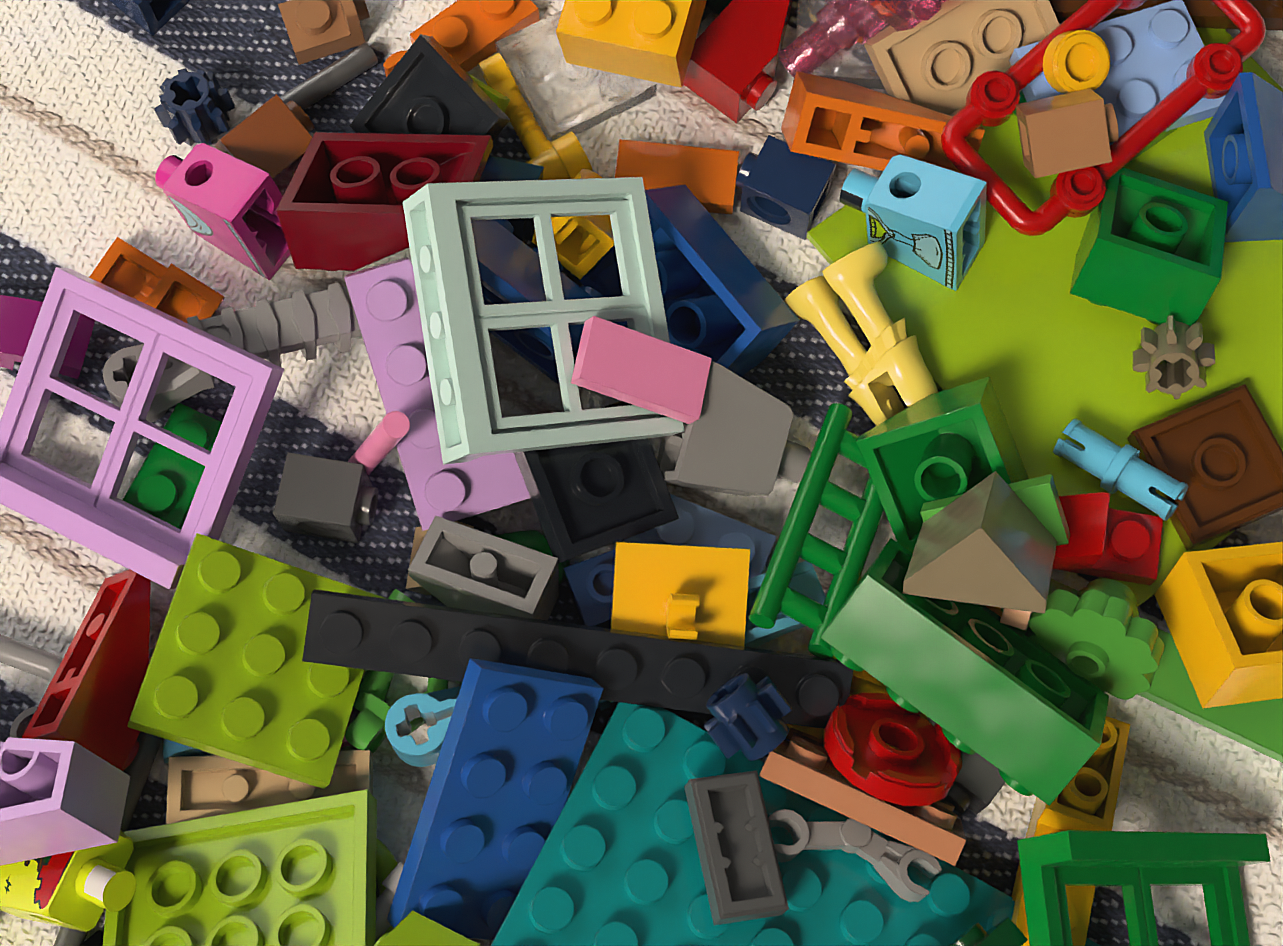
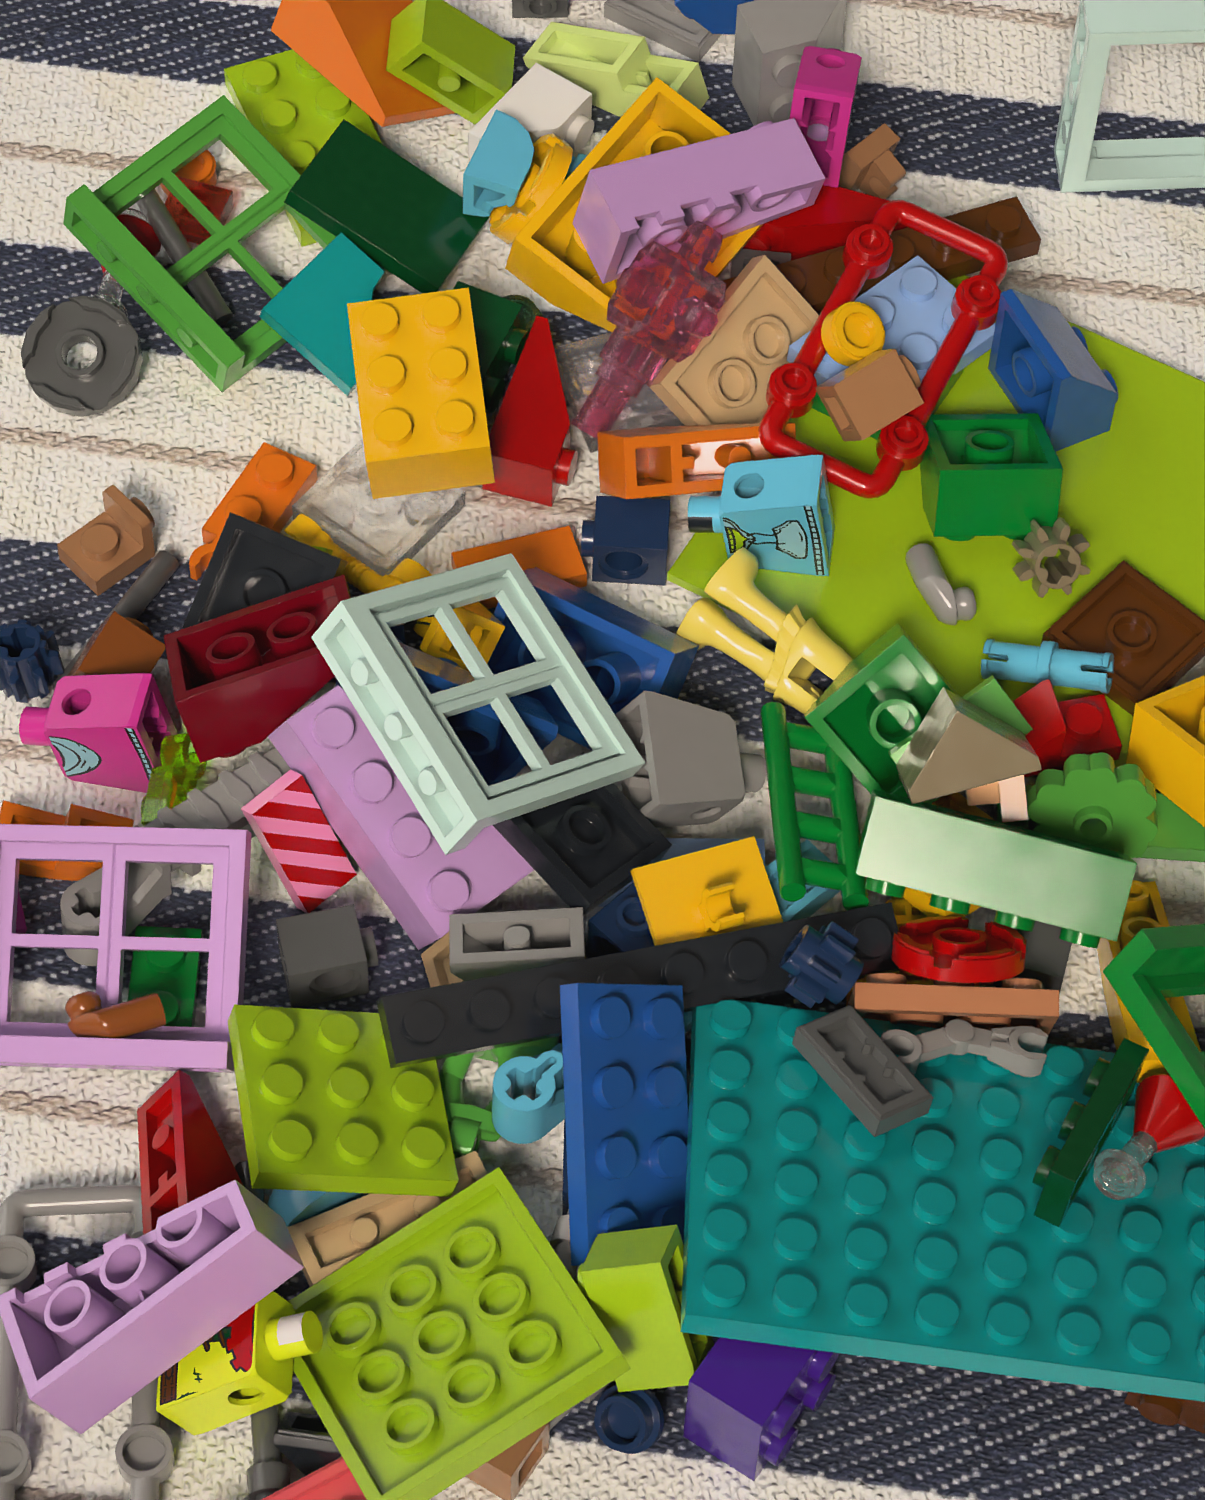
camera: 25 degrees left, 15 degrees down
(99, 502) = (115, 1021): none -> dark orange arm
(264, 279) = (173, 779): none -> clear neon green plate
(341, 379) = (299, 841): none -> tile
(381, 440) = (373, 861): bright pink bar -> none
(641, 370) = (588, 714): bright pink tile -> none
(1047, 342) = (935, 588): none -> light grey arm

